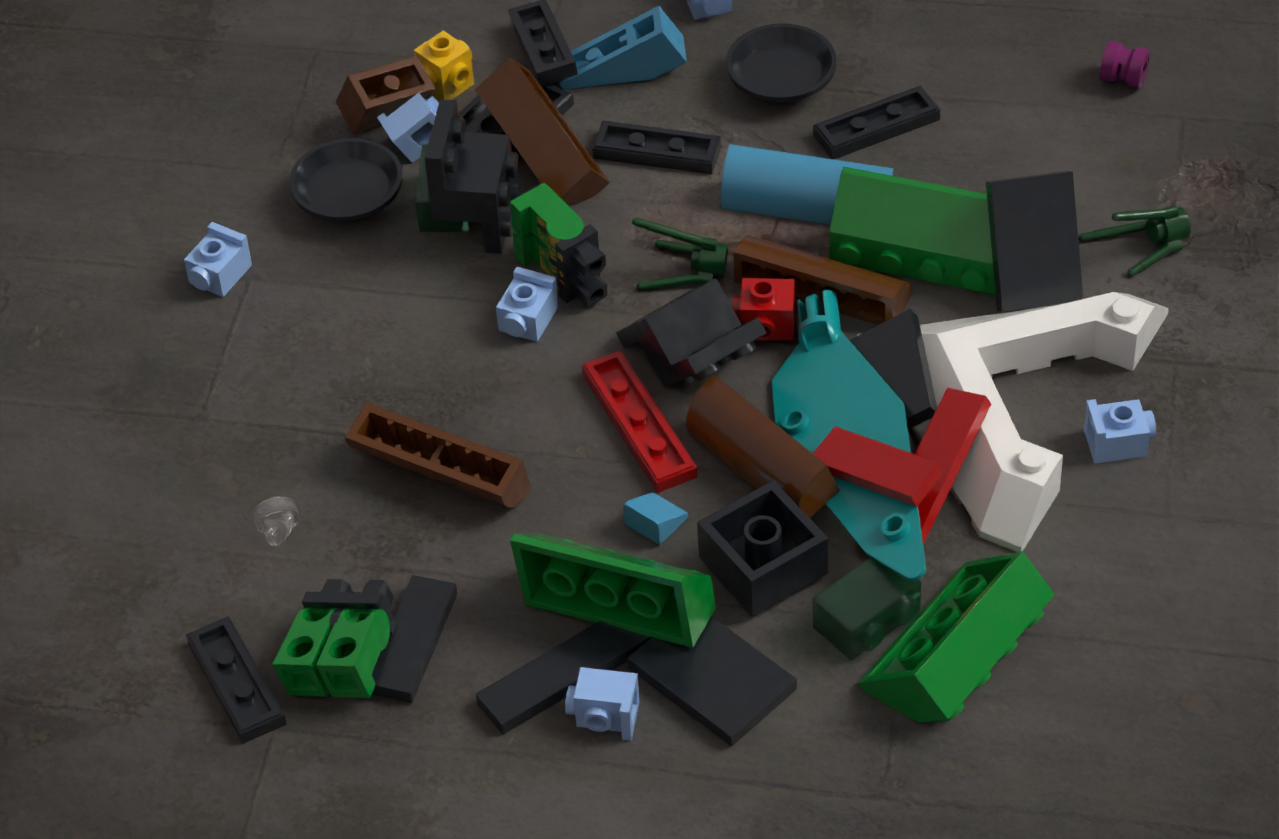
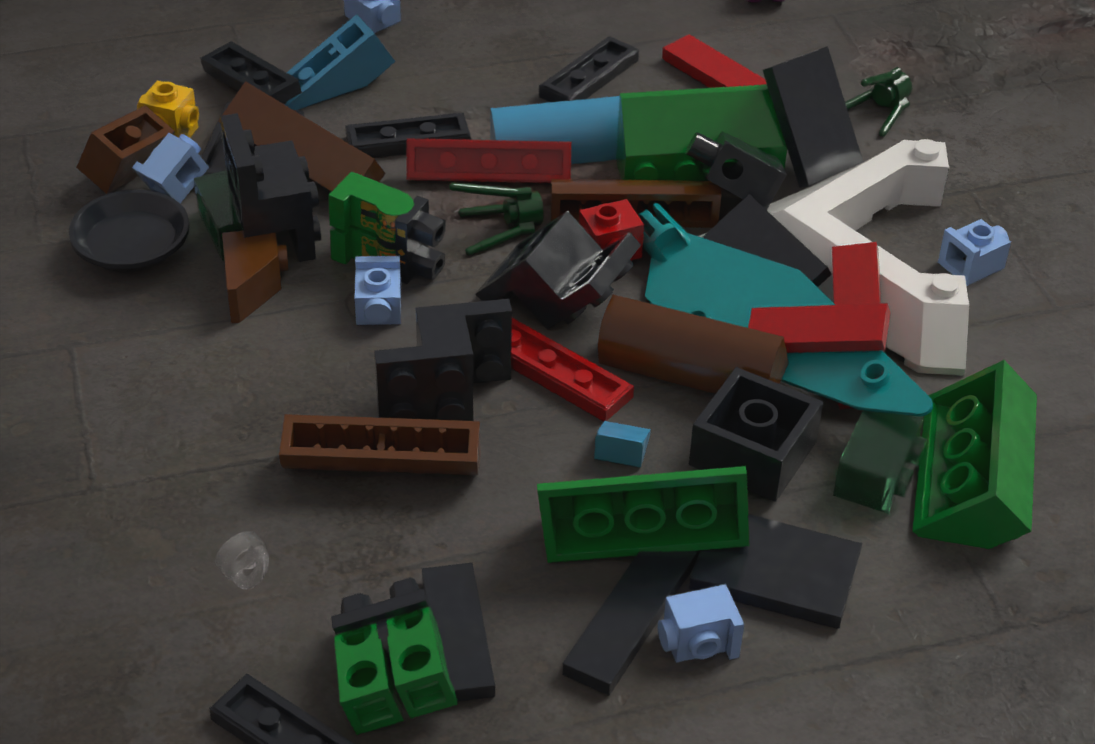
camera: 30 degrees left, 5 degrees down
(218, 260) = (33, 333): light blue brick -> none
(428, 253) = (252, 271): none -> reddish brown slope
(529, 396) = (453, 351): none -> black bracket
(709, 197) = (488, 160): none -> red tile
(781, 63) = (482, 44): black piece -> none
(926, 275) = (751, 174): none -> black torso
(1000, 143) = (708, 64): none -> red tile

